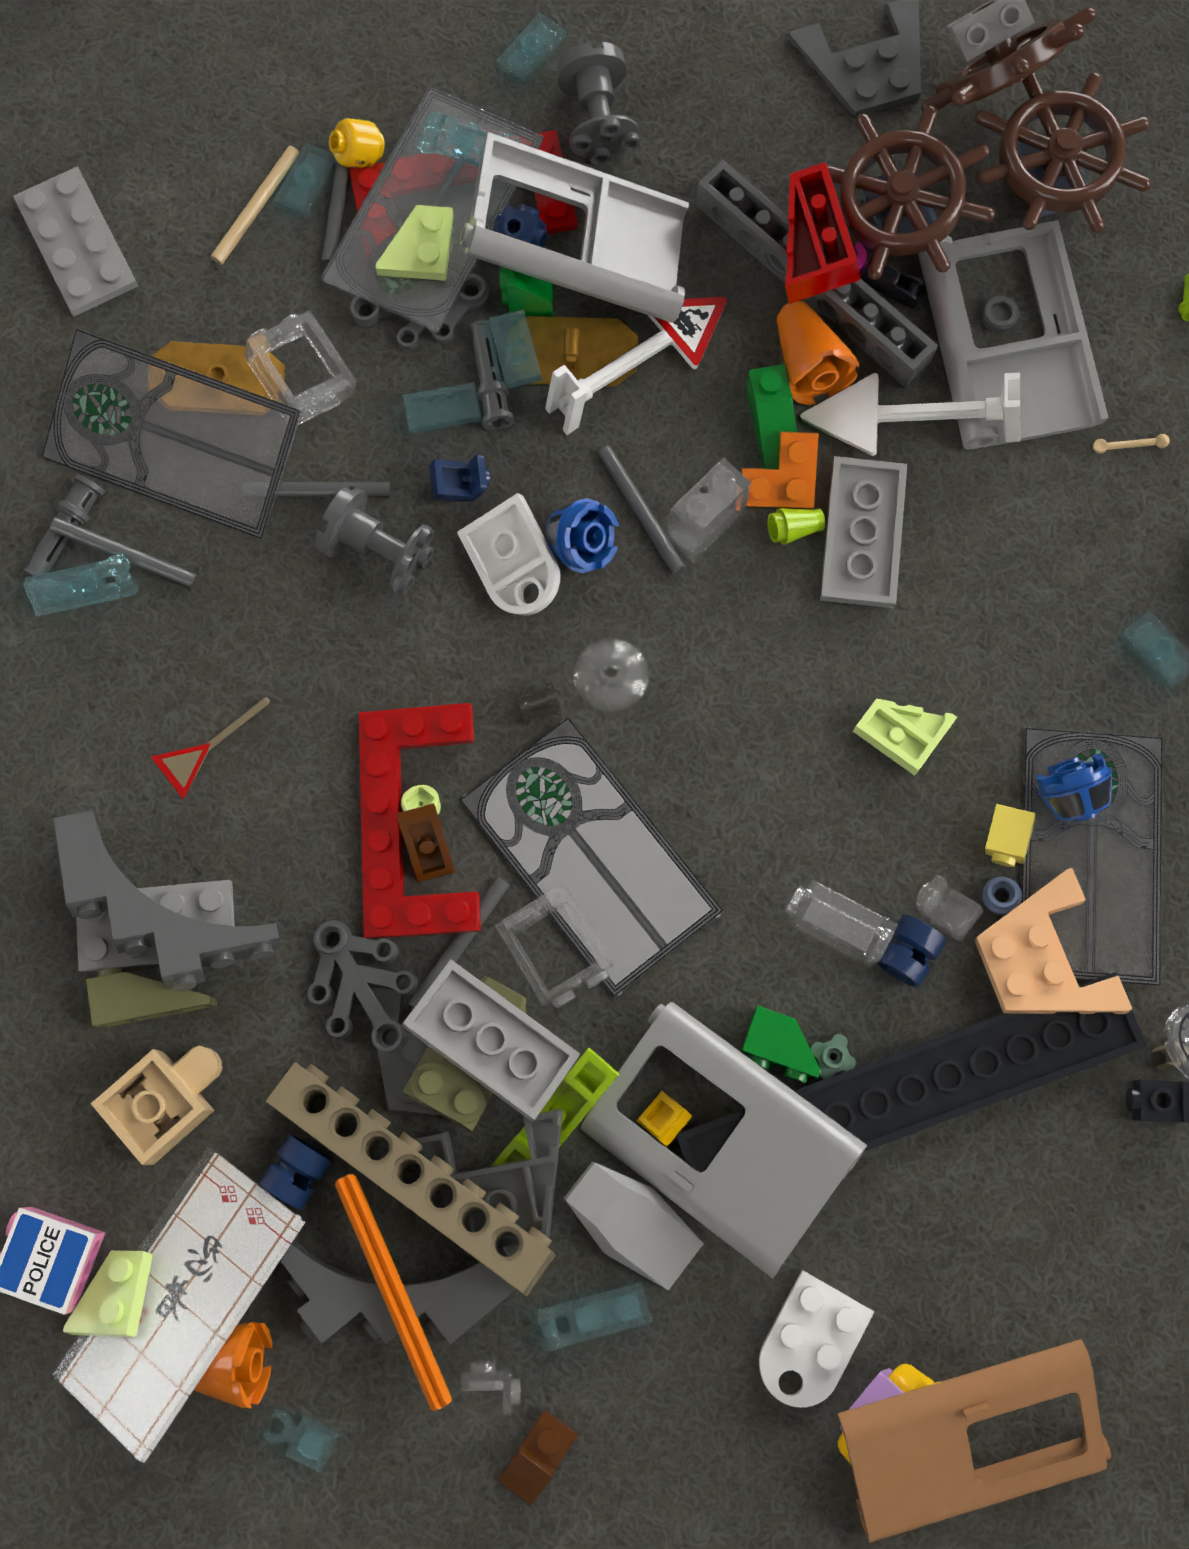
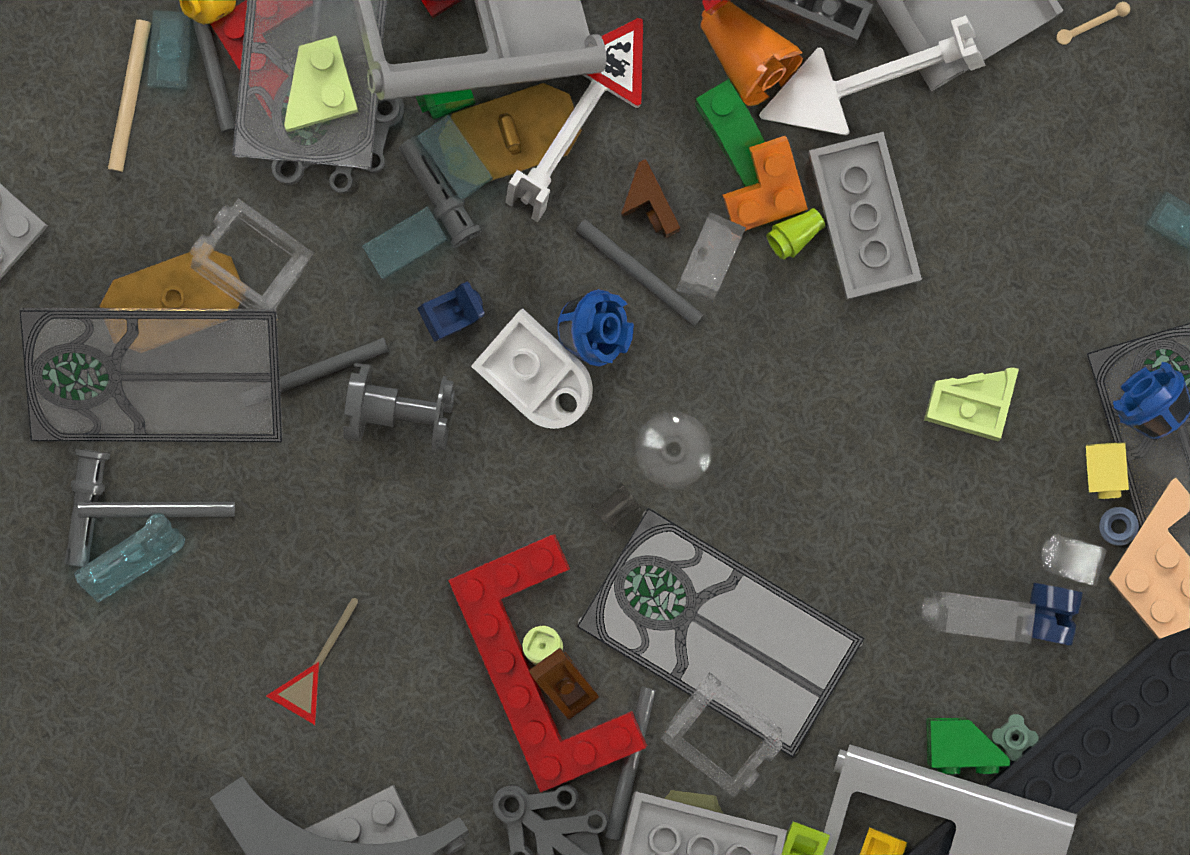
camera: 15 degrees left, 10 degrees up
(522, 224) = (404, 44): dark blue brick -> none
(672, 441) = (646, 192): none -> reddish brown slope

